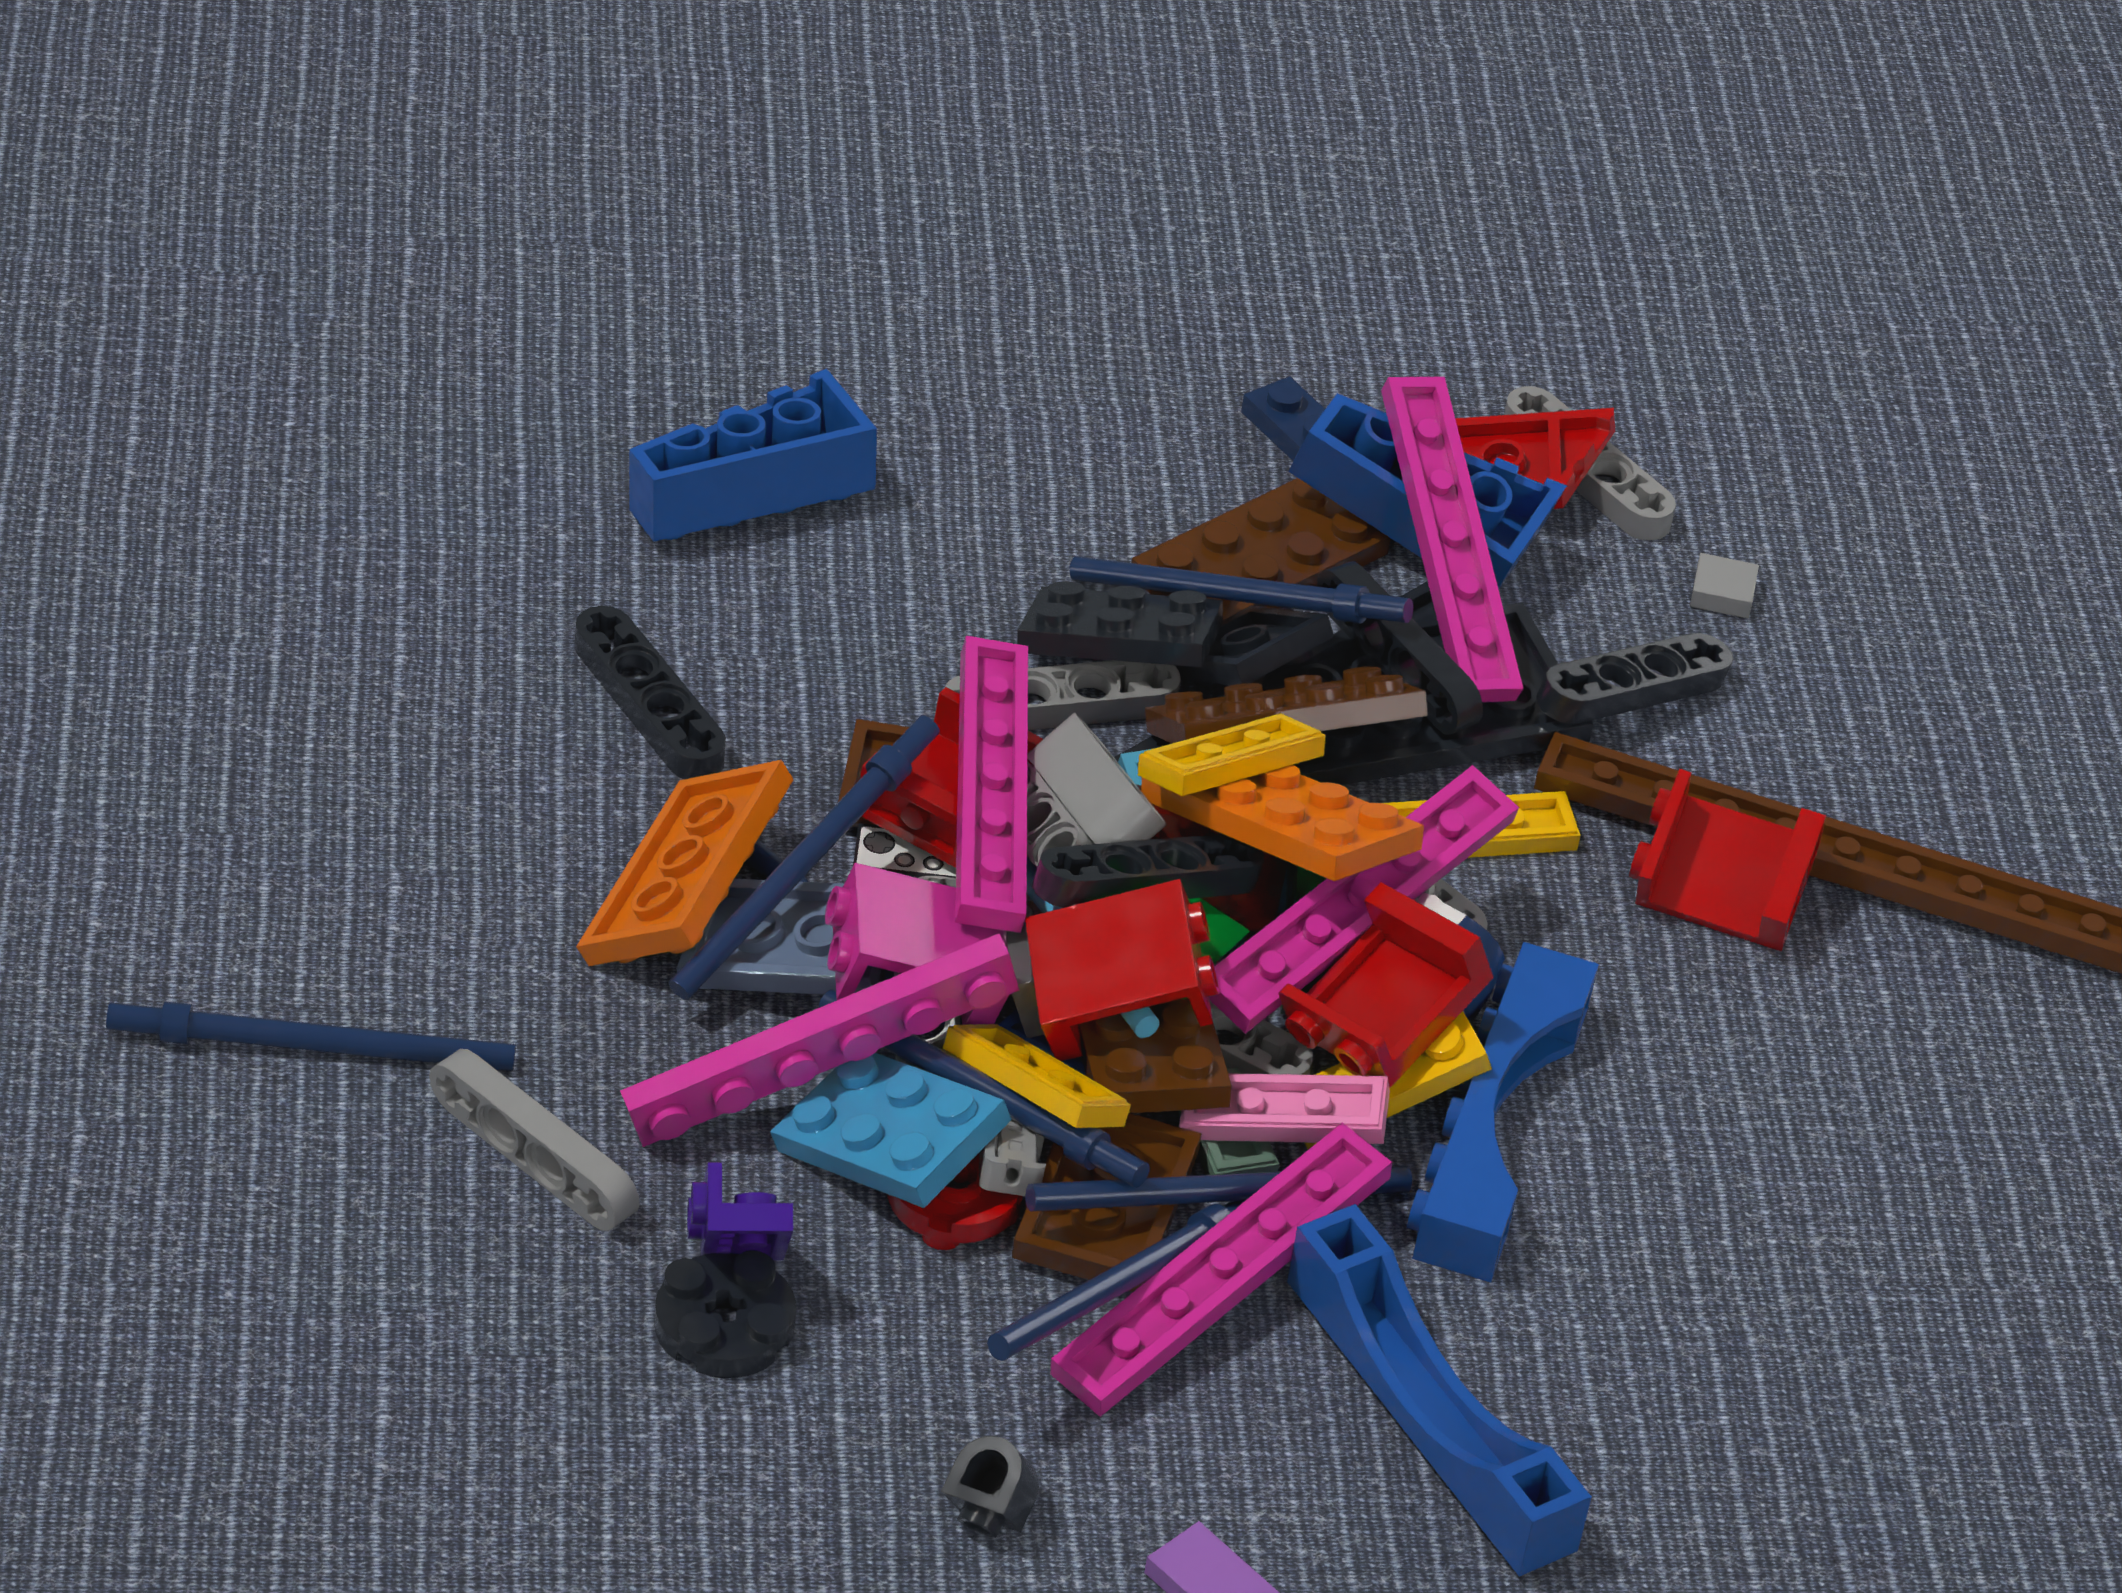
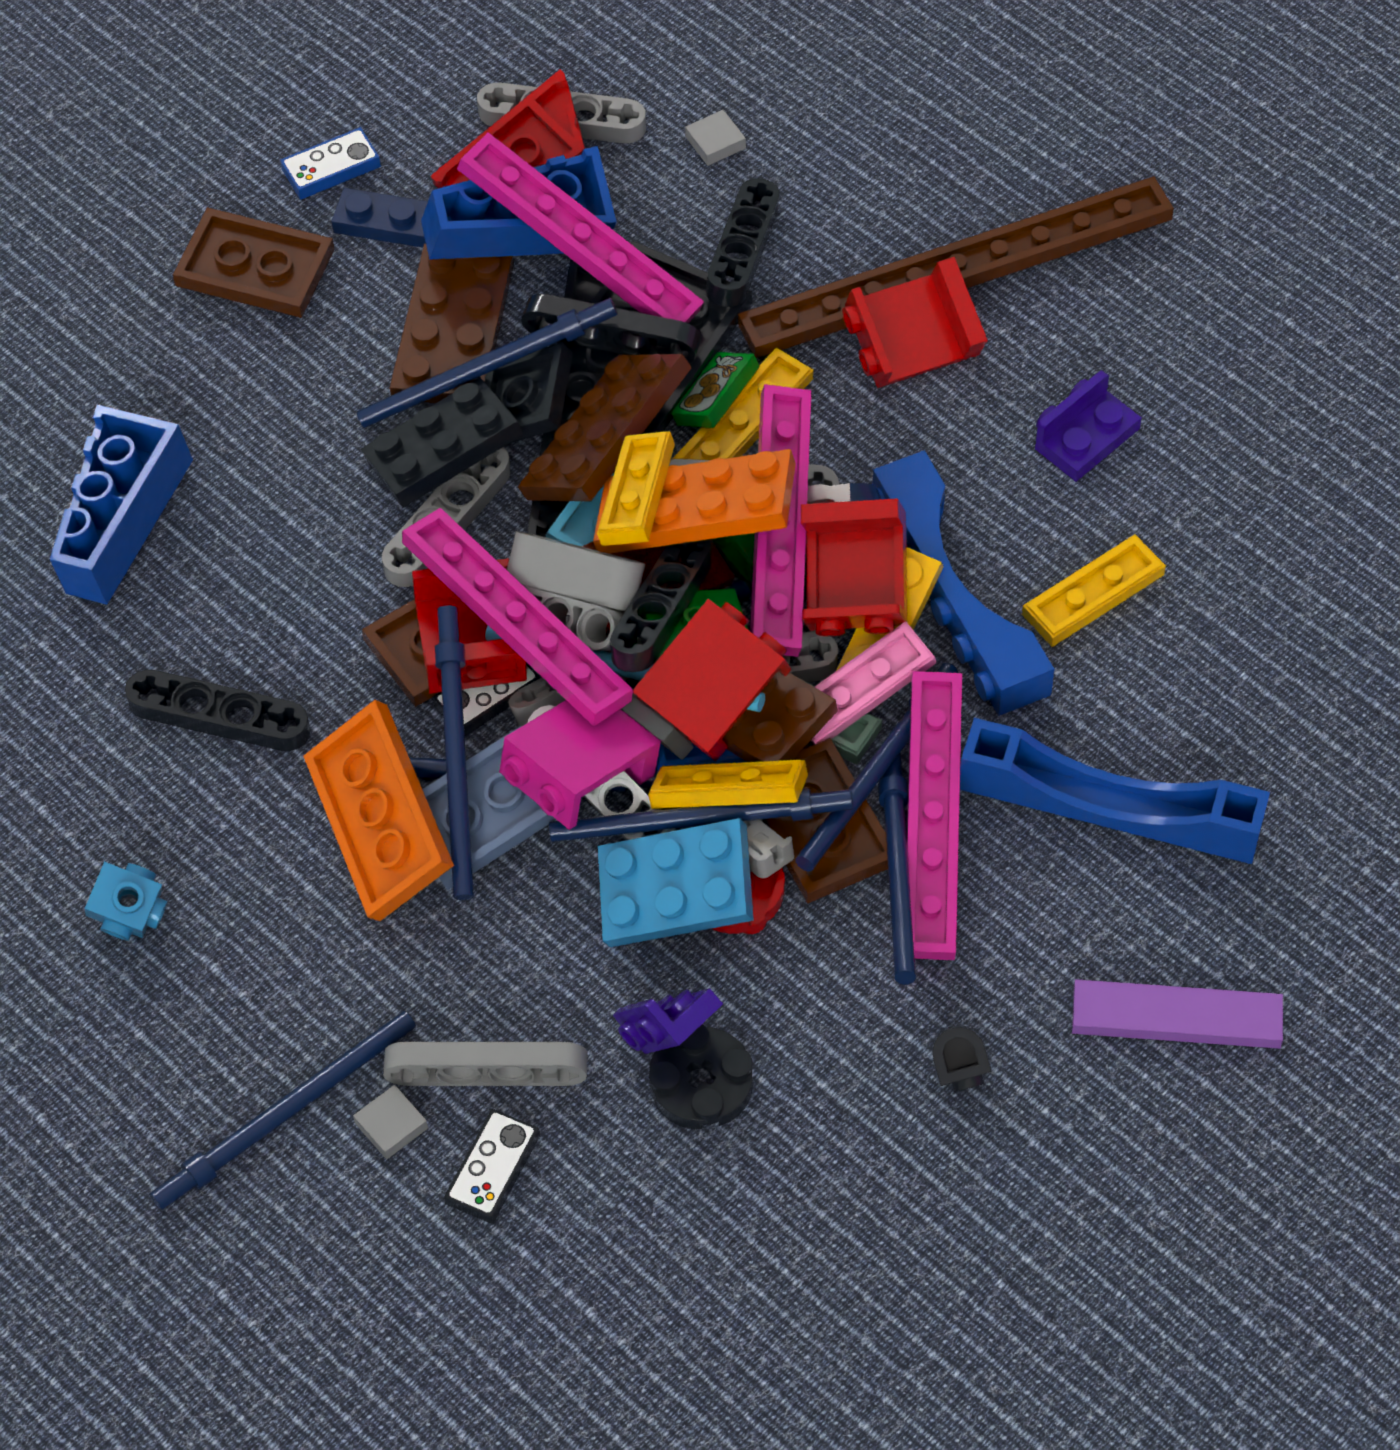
camera: 35 degrees left, 15 degrees up
(370, 762) = (115, 885): none -> dark azure brick
(393, 1121) = (390, 1122): none -> light grey tile
(439, 1228) = (492, 1166): none -> tile
(820, 1040) = (586, 883): dark pink plate -> none
(1128, 376) = (254, 262): none -> reddish brown plate
(1304, 353) = (330, 163): none -> tile
(1420, 781) = (715, 389): none -> tile
(1648, 1225) = (1093, 590): none -> yellow tile
(1813, 1079) = (1084, 427): none -> dark purple bracket

